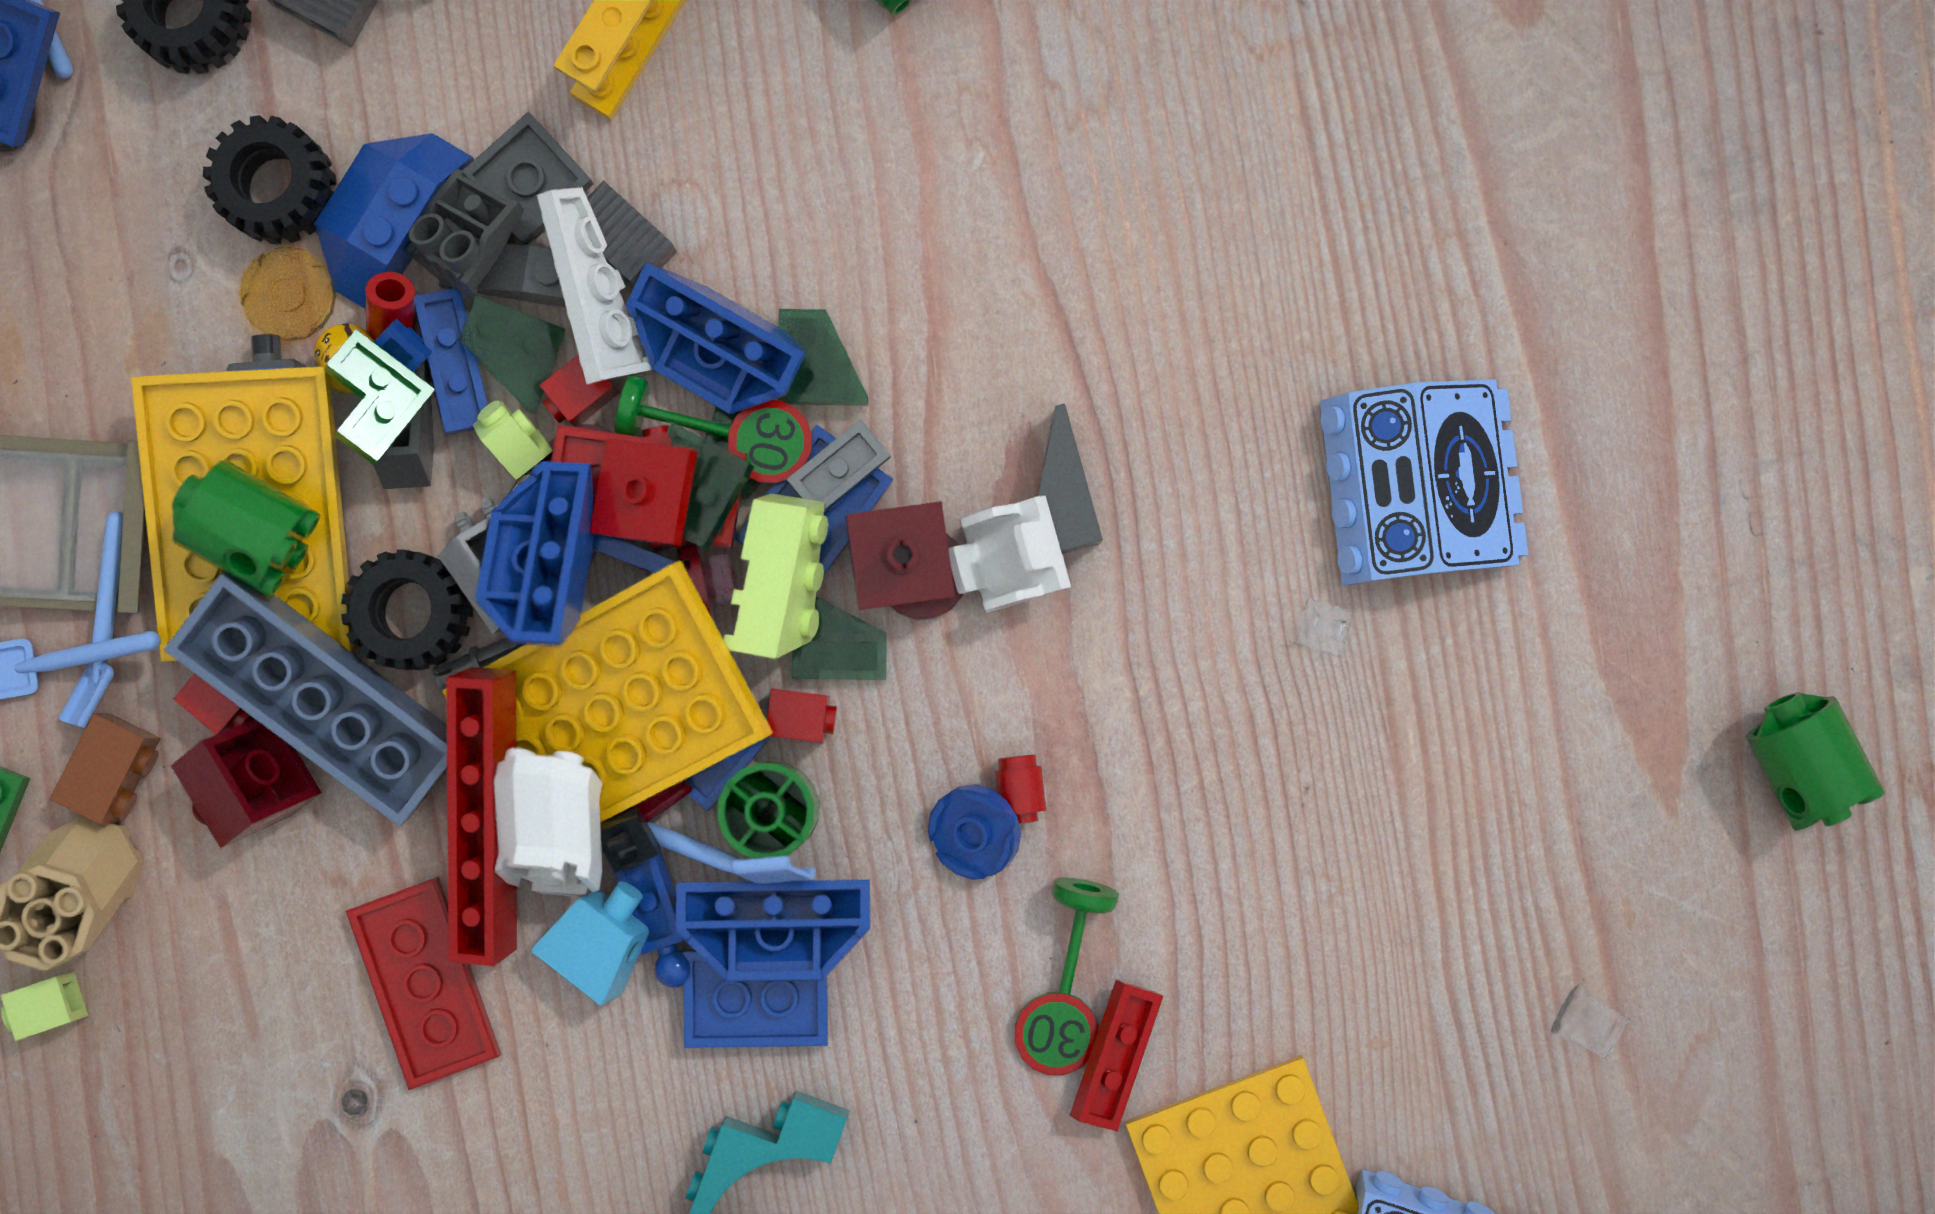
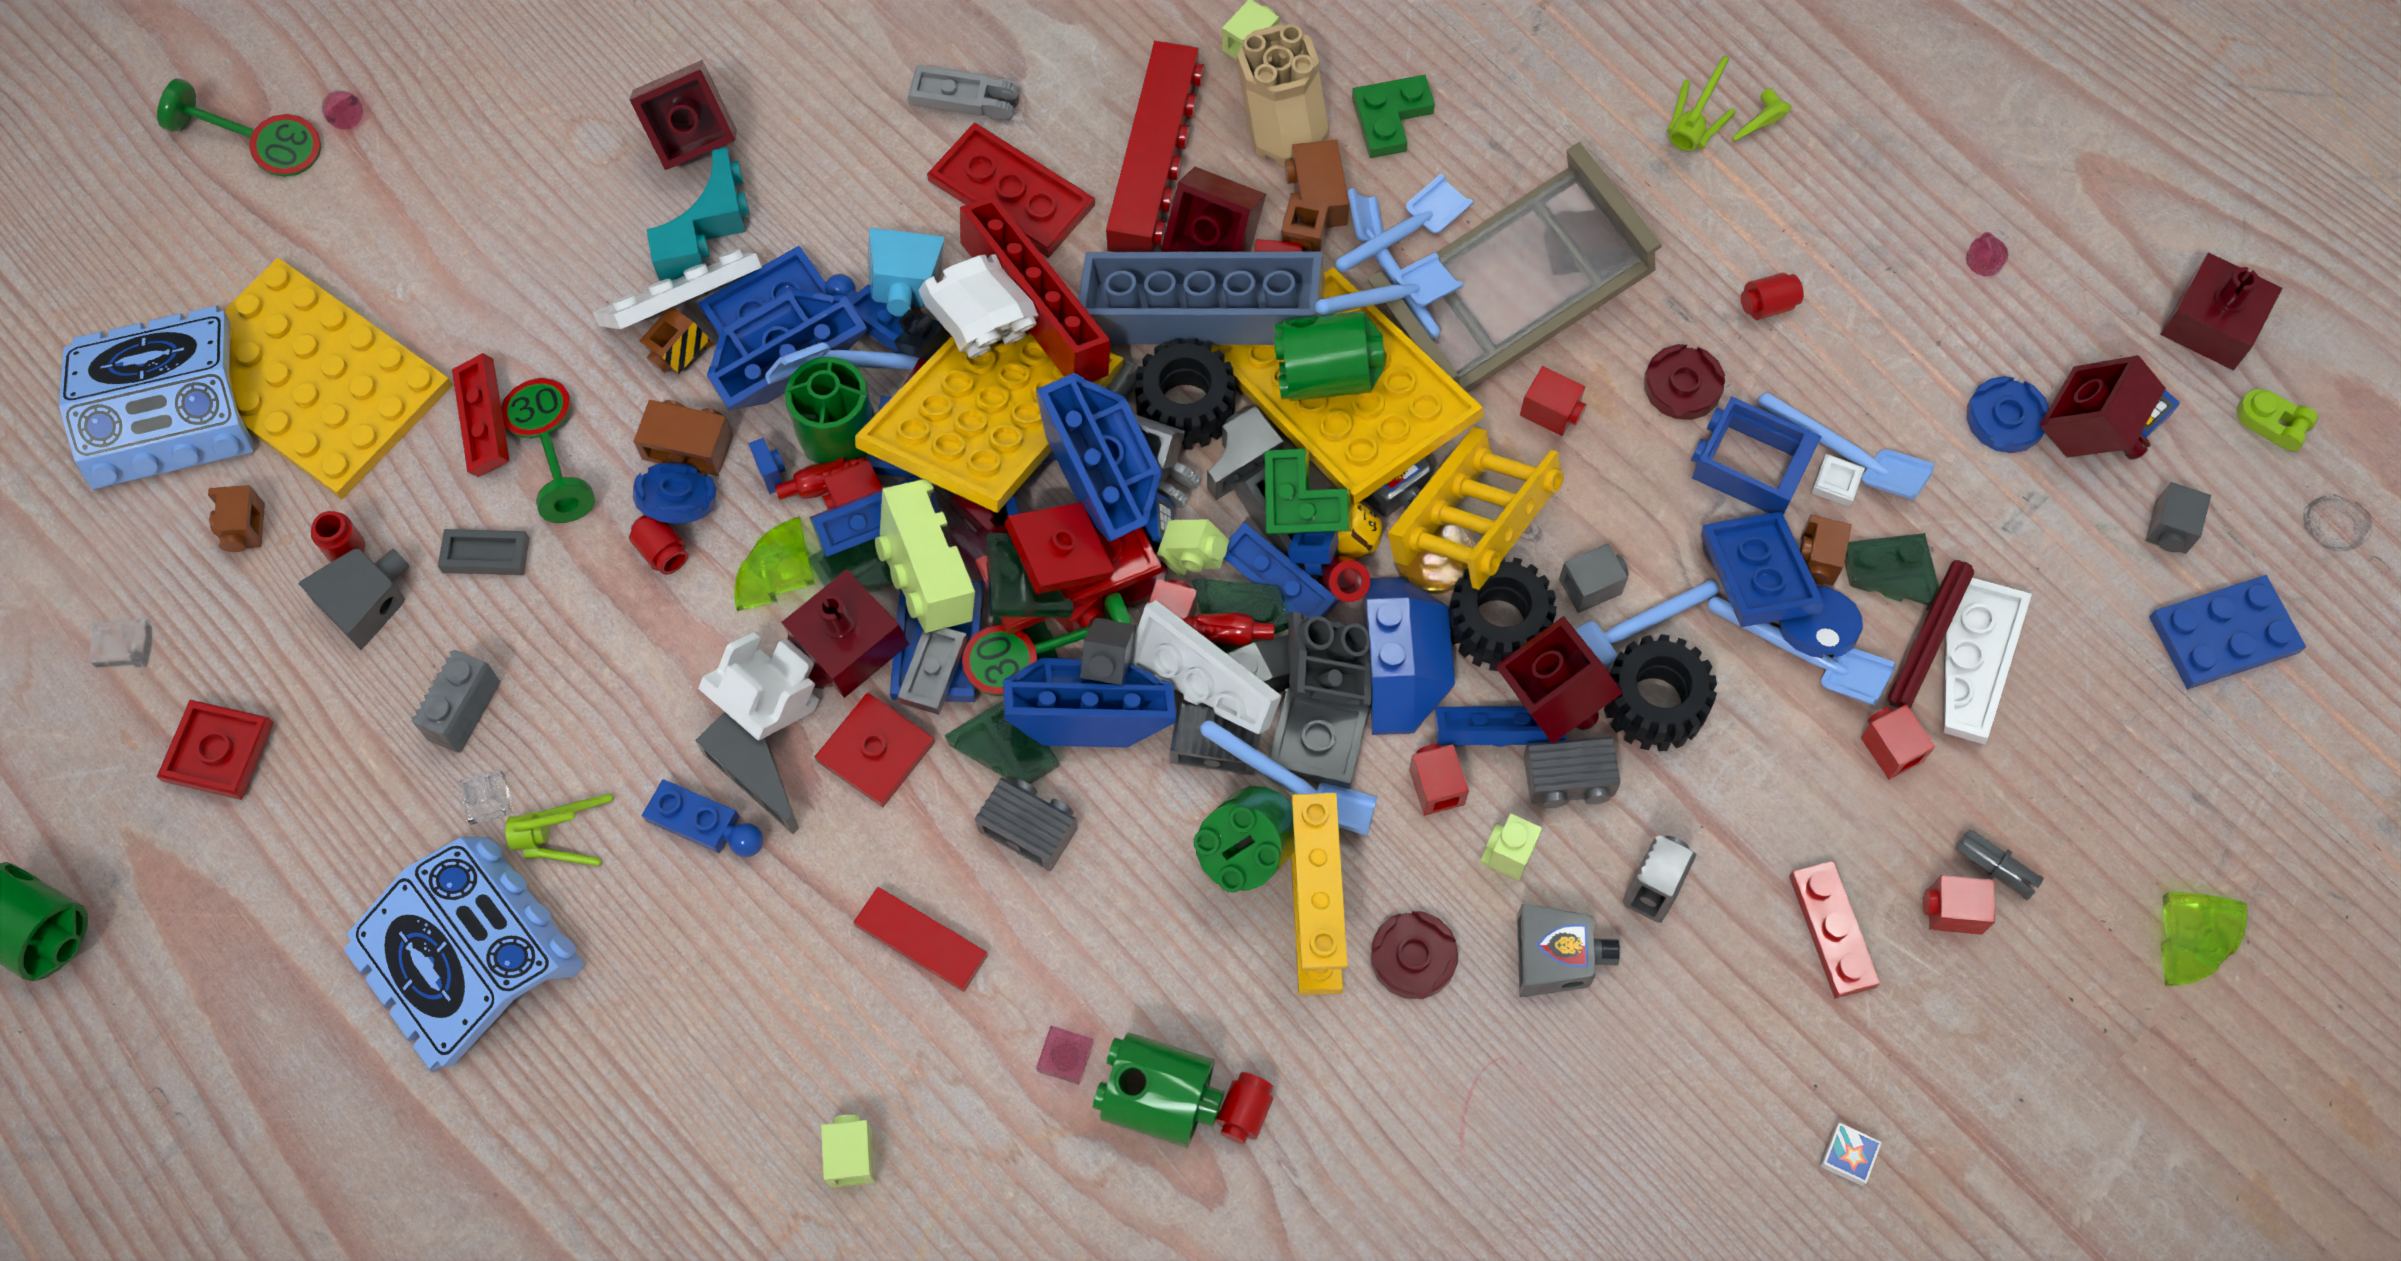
camera: 155 degrees right, 20 degrees down
(54, 368) = (1553, 401): none -> red brick
(87, 575) = (1421, 282): none -> light blue piece
(156, 162) = (1594, 577): none -> dark grey brick
(157, 719) = (1310, 235): none -> dark orange brick
(213, 101) = (1601, 642): none -> light blue piece
(213, 334) = (1455, 481): none -> yellow fence
(242, 928) = (1153, 149): none -> red brick
(268, 62) = (1559, 680): none -> dark red brick
(352, 78) = (1487, 726): none -> blue plate
(387, 515) = (1245, 440): none -> arch
(399, 1139) = (962, 92): none -> light grey hinge
(445, 66) = (1438, 778): none -> brick
(534, 320) = (1230, 628): none -> red piece
(555, 105) = (1353, 807): none -> light blue piece
(658, 100) = (1246, 838): none -> green cylinder
(664, 369) = (1108, 651): none -> dark grey brick
(808, 672) = (853, 521): none -> blue plate
(819, 759) = (810, 480): none -> red piece
(845, 269) = (1027, 822): none -> flat silver brick
(857, 1072) = (669, 293): none -> white wing
(863, 806) = (768, 463): none -> blue plate
(877, 1027) = (674, 341): none -> brick
(920, 695) = (774, 566): none -> clear neon green brick
(928, 895) = (683, 436): none -> dark orange brick
(939, 439) = (874, 749): none -> red plate
(946, 36) = (1064, 1055): none -> clear pink plate
(1007, 228) = (920, 939): none -> red tile
(1139, 470) = (701, 820): none -> blue plate
(1185, 71) = (848, 1152): none -> yellowish green brick
(1192, 897) = (483, 552): none -> dark grey tile
(1301, 557) = (532, 829): none -> lime plant
(1303, 737) = (456, 701): none -> flat silver brick
(1338, 923) = (358, 592): none -> dark grey torso
(1342, 1000) = (335, 535): none -> red brick
(1416, 1089) = (237, 517): none -> dark orange brick
(1552, 840) = (215, 749): none -> red plate

